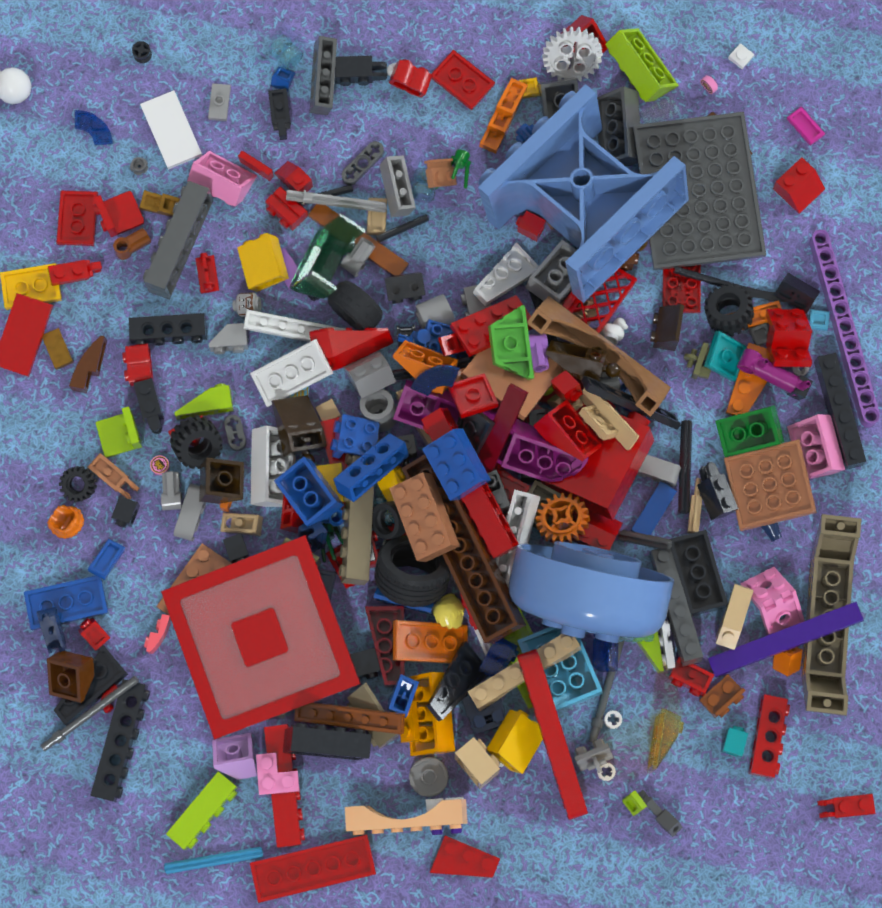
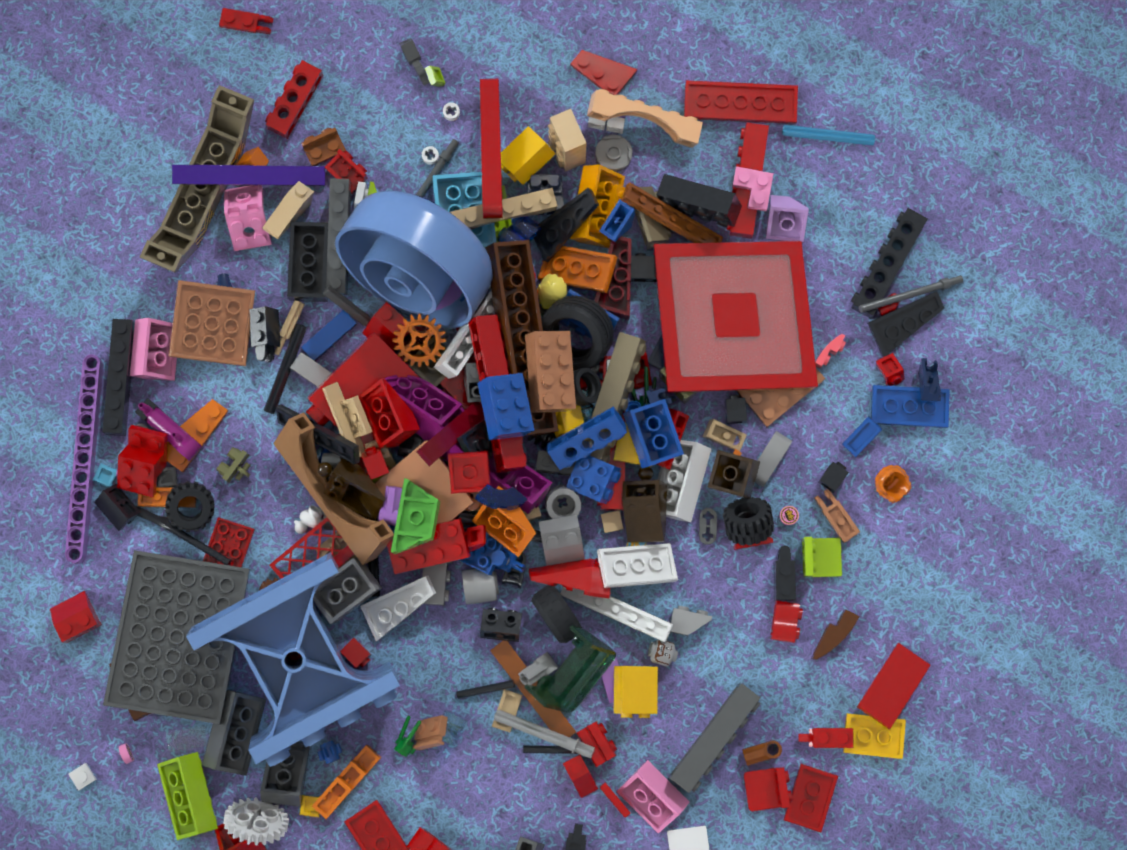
camera: 165 degrees left, 5 degrees up
(57, 349) = (862, 663): pearl gold tile -> none
(67, 488) = (880, 510): black tyre -> none
(69, 675) = (921, 333): reddish brown slope -> none
(139, 161) = (729, 836): flat silver plate -> none
(139, 325) = (778, 649): black brick -> none
(158, 203) = (723, 788): pearl gold slope -> none
(171, 494) = (784, 482): light grey piece -> none
(202, 811) = (828, 177): lime brick -> none
(207, 273) = (694, 698): red hinge -> none
(210, 402) = (723, 562): lime slope -> none
(357, 176) = (506, 764): dark grey beam -> none
(397, 186) = (477, 733): light grey brick -> none
(593, 758) = (456, 123): light grey hips -> none
(665, 732) = (392, 119): clear yellow slope -> none
(668, 327) = (256, 506): dark brown slope -> none
(724, 356) = (209, 462): teal tile -> none
(734, 741) = (326, 103): teal brick -> none
(750, 431) = (211, 382): green slope -> none
(805, 126) = (44, 681): dark pink tile -> none

